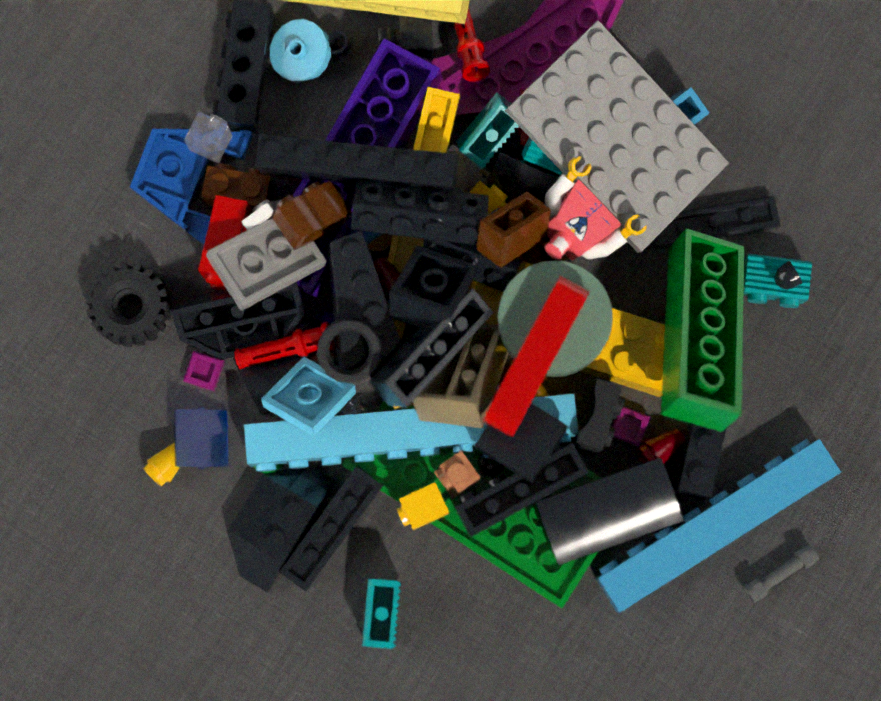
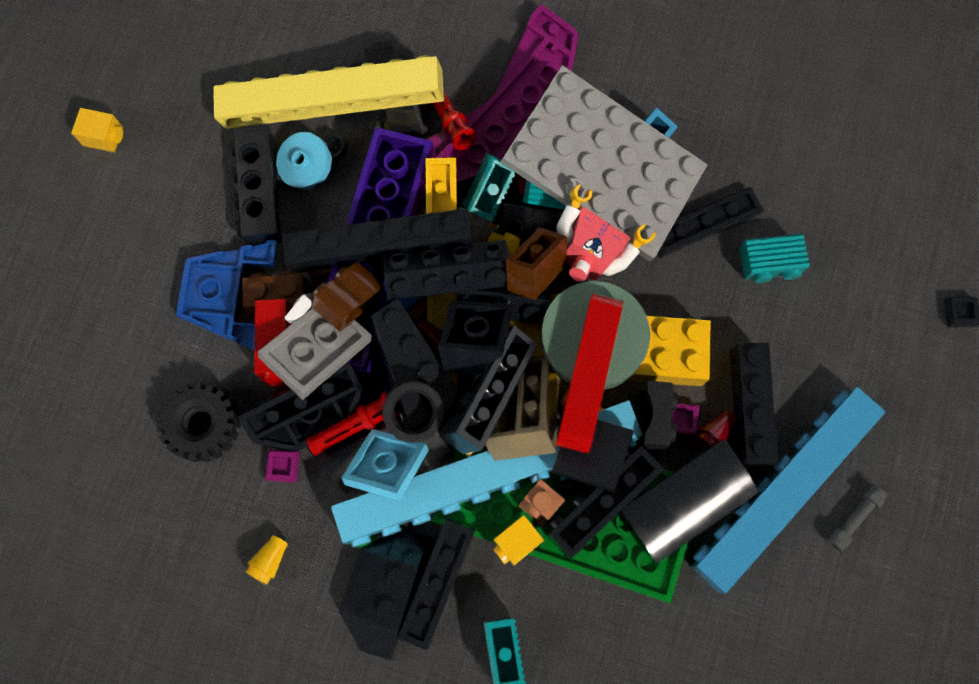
camera: 15 degrees left, 5 degrees down
(201, 438) = (293, 529): clear blue piece -> none
(208, 136) = (237, 251): clear brick -> none
(703, 331) = (731, 316): green brick -> none
(787, 276) = (787, 249): black hinge -> none

